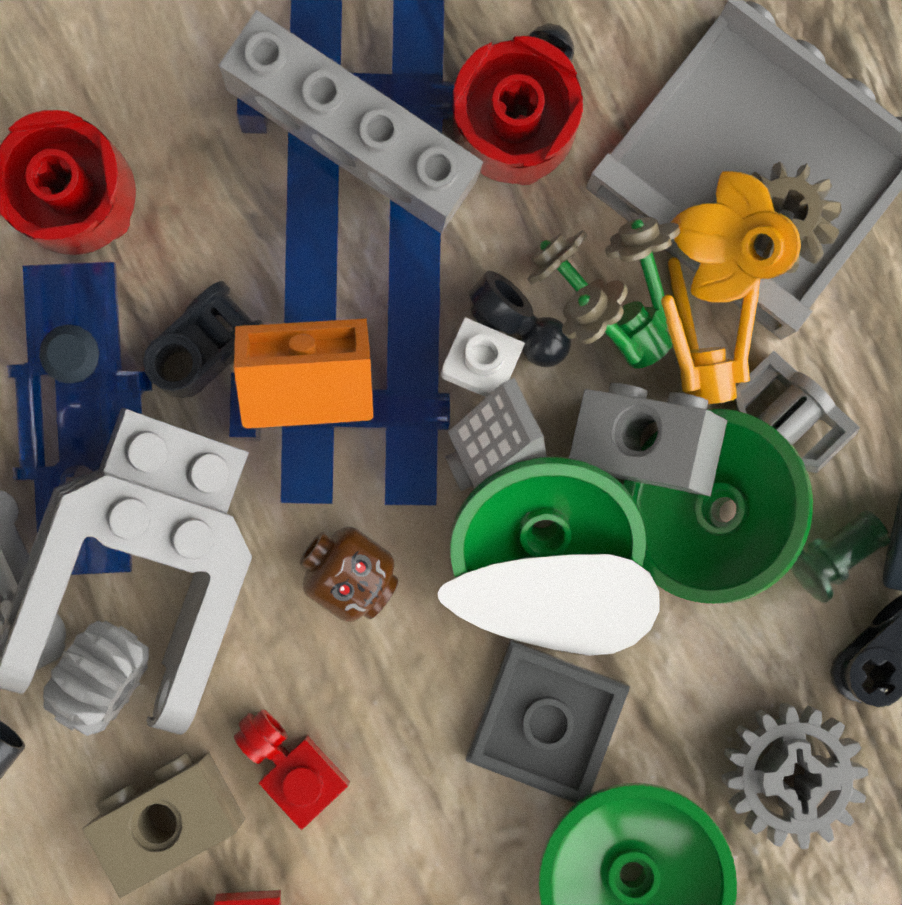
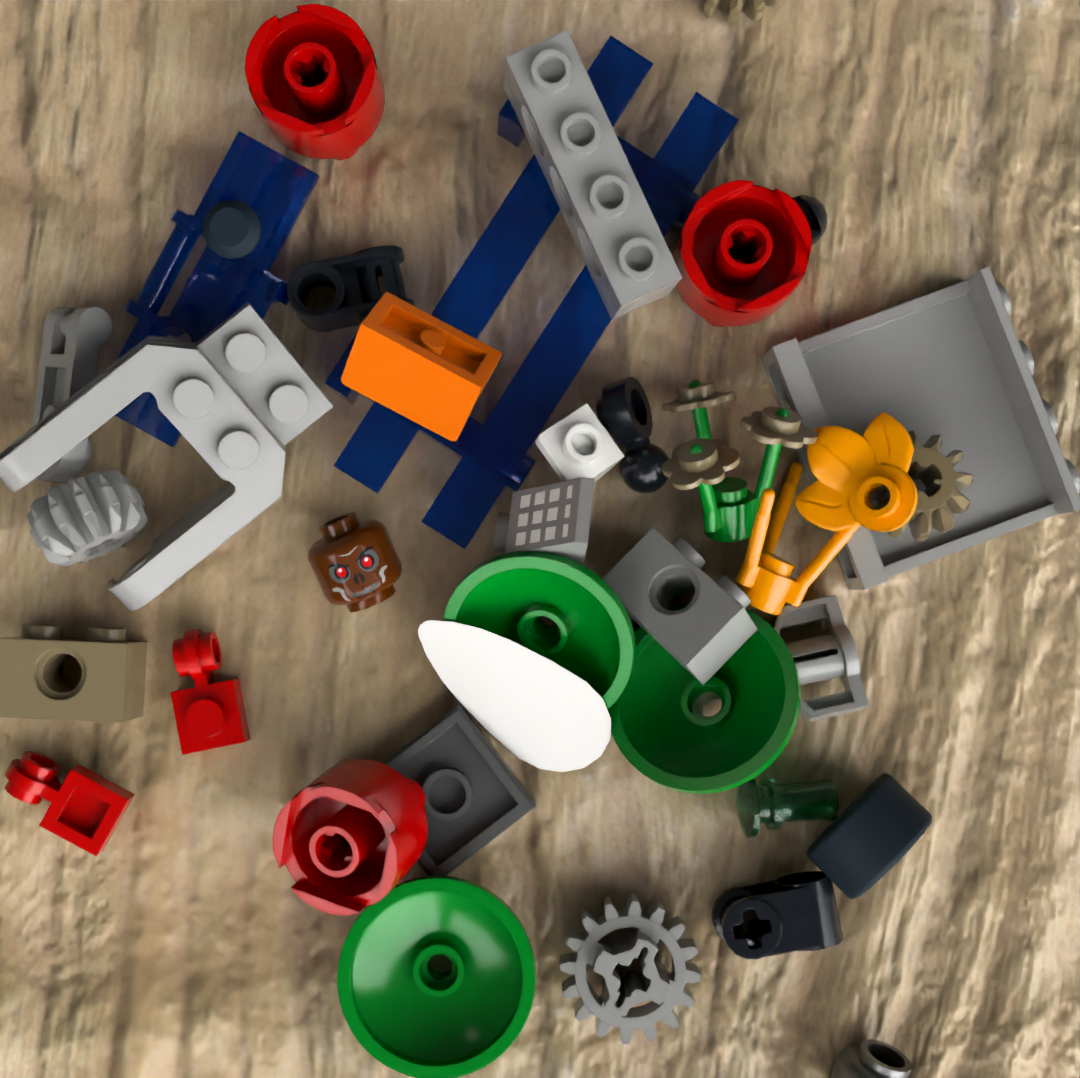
camera: 30 degrees right, 0 degrees up
(491, 808) = (351, 835): none -> red brick

